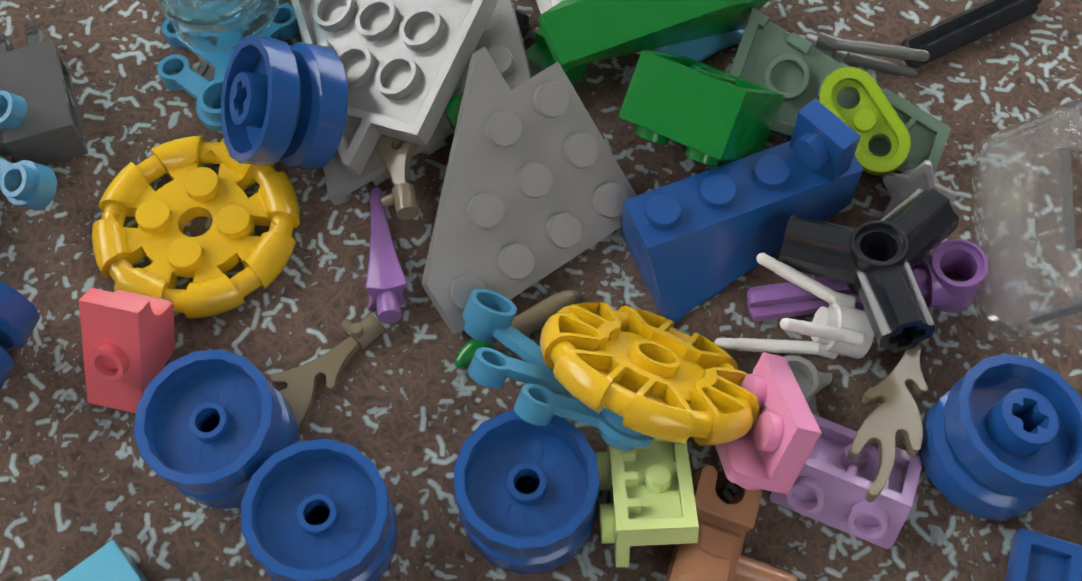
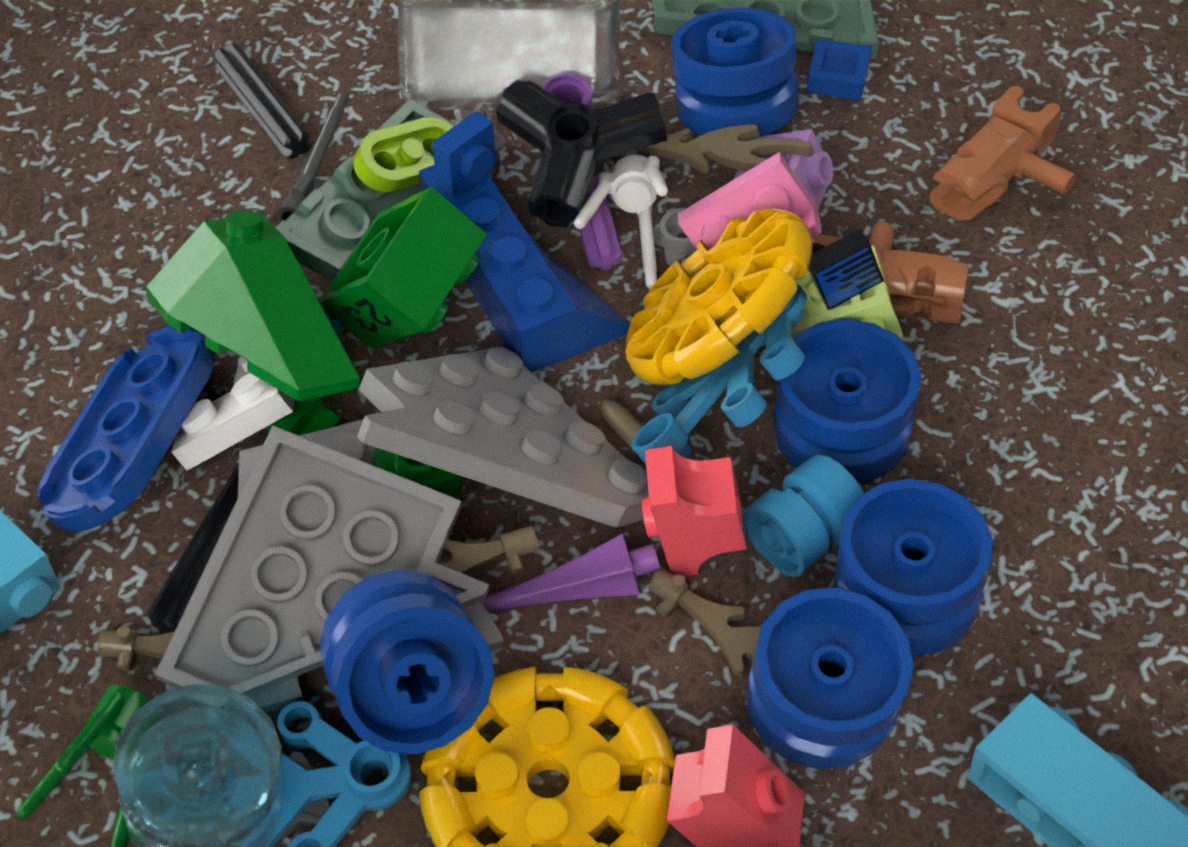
camera: 95 degrees left, 10 degrees down
(398, 432) = (805, 518): none -> dark azure wheel
(402, 325) = (692, 508): none -> coral brick
(648, 479) = (844, 269): none -> black tile

